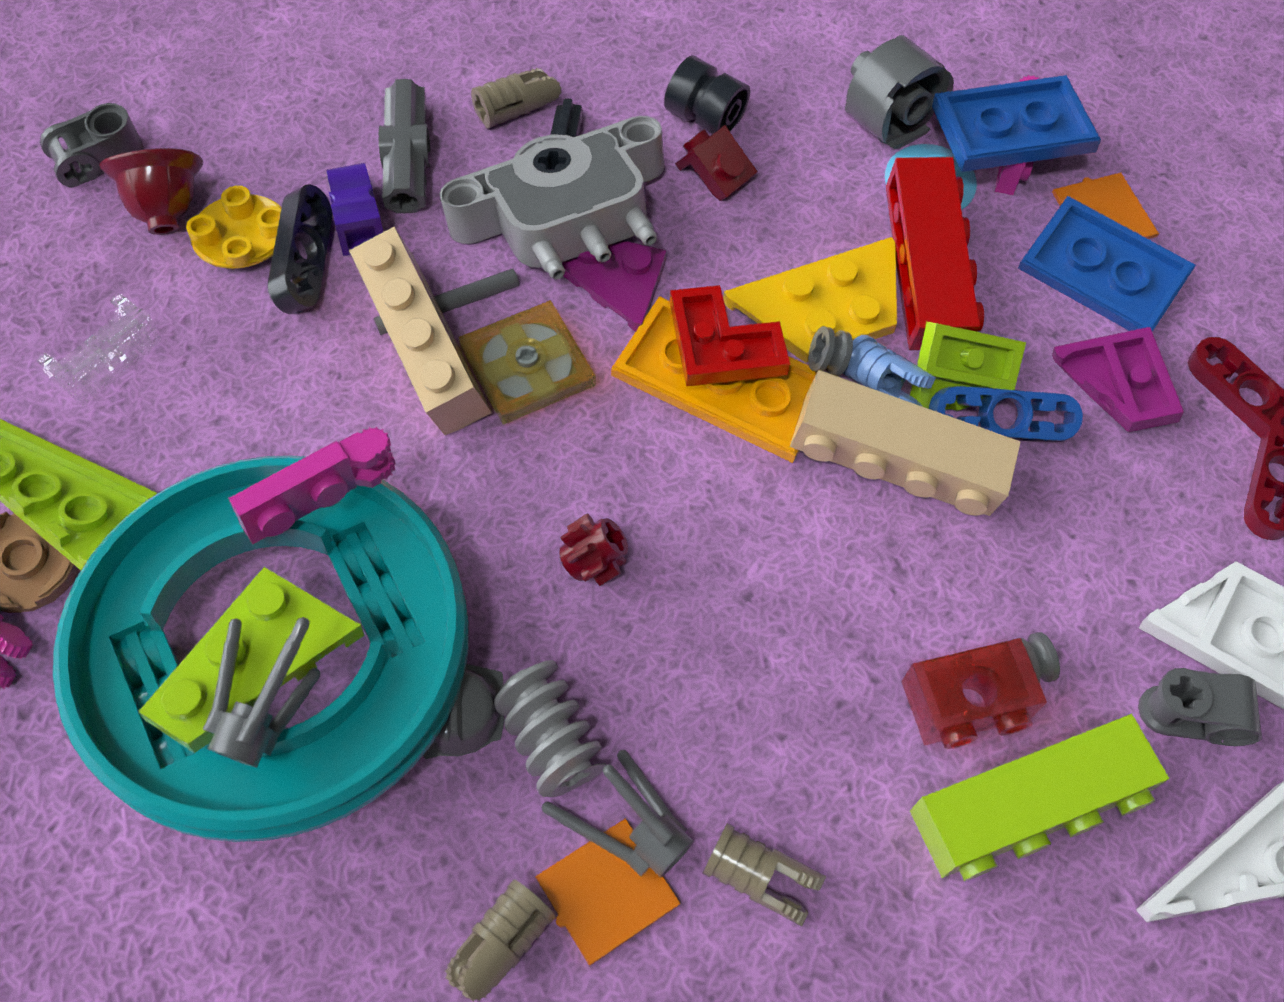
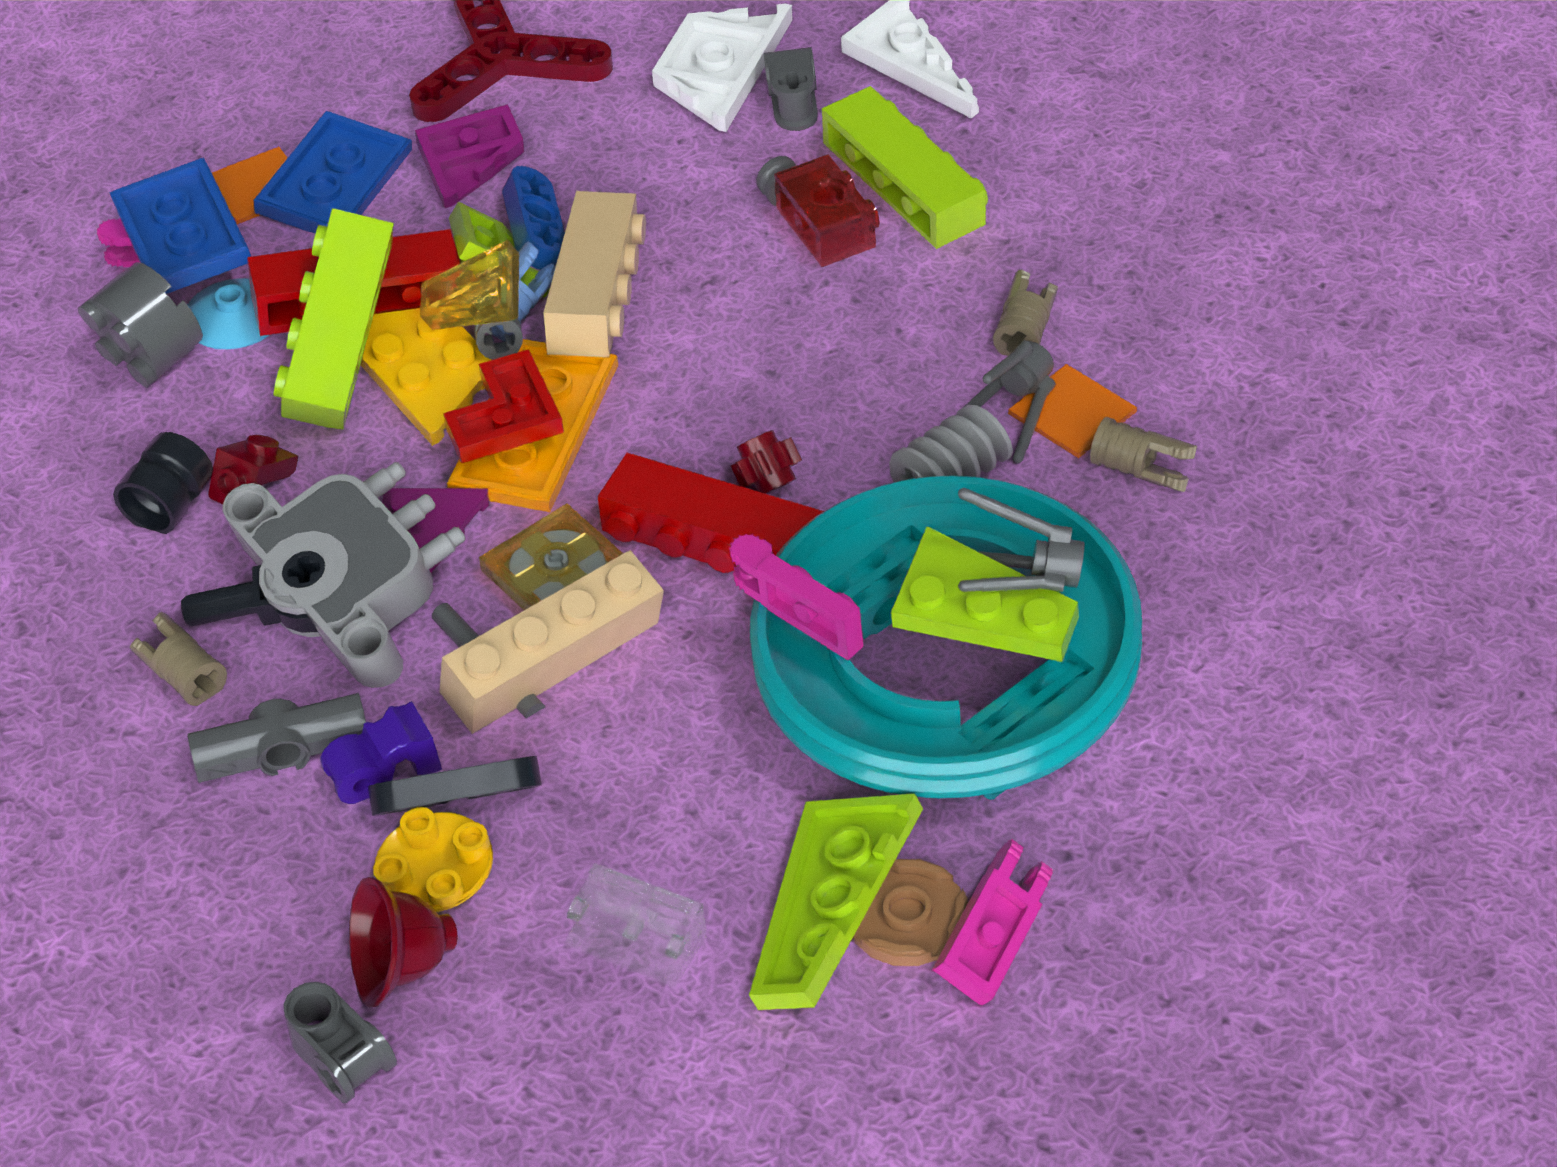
camera: 95 degrees left, 15 degrees down
(531, 489) = (692, 512): none -> red brick
(857, 213) = (335, 320): none -> lime brick
(868, 323) = (474, 291): none -> clear yellow wing

